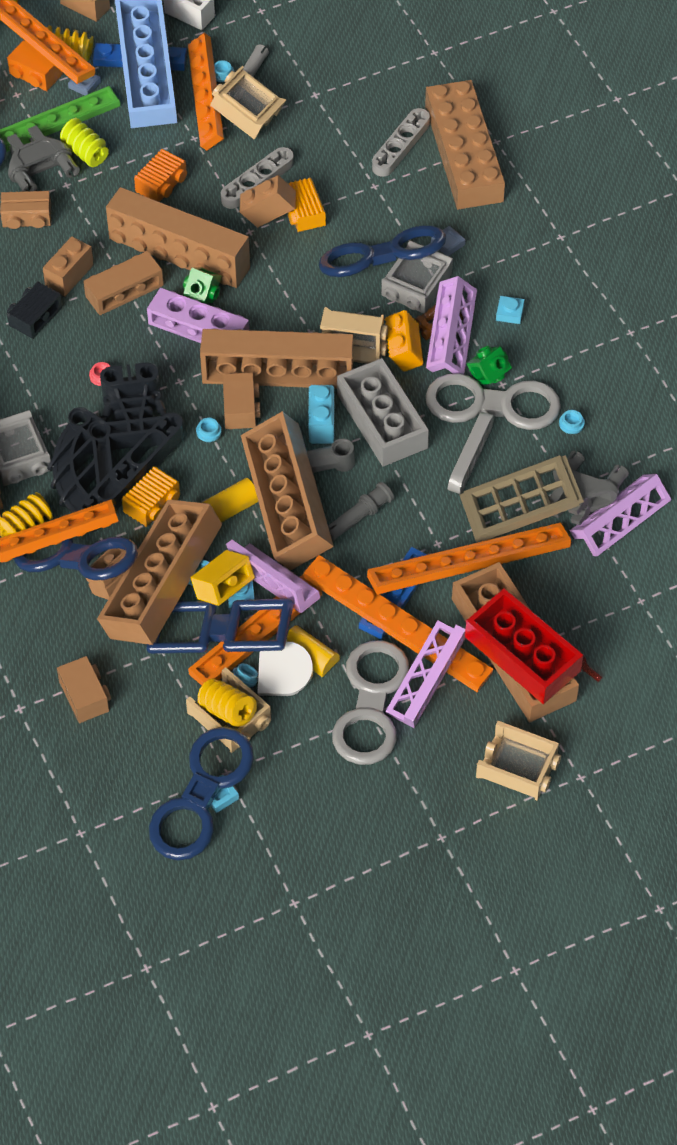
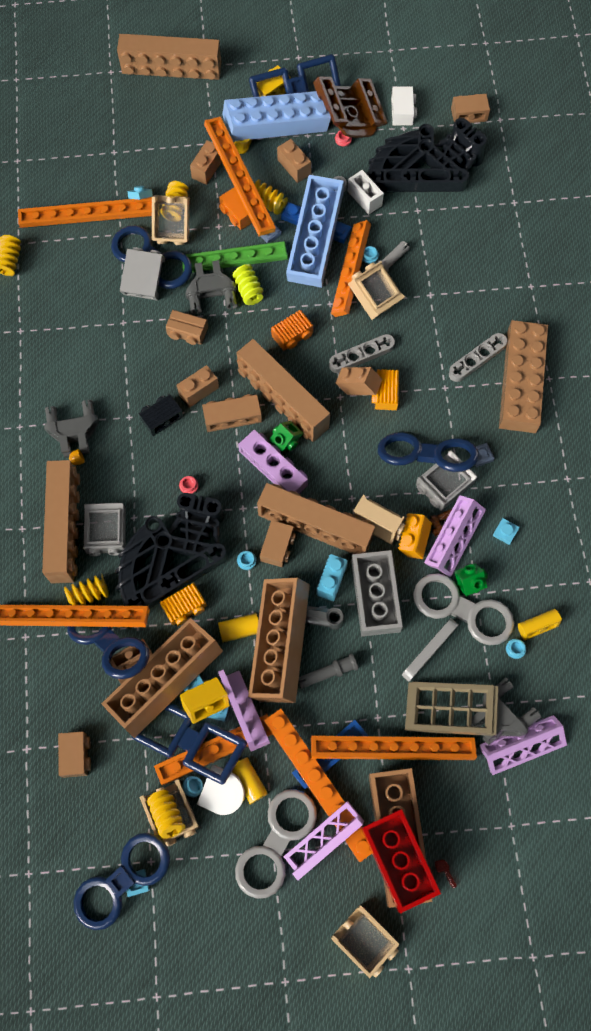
camera: 20 degrees right, 15 degrees up
(589, 389) = (539, 624): none -> yellow brick

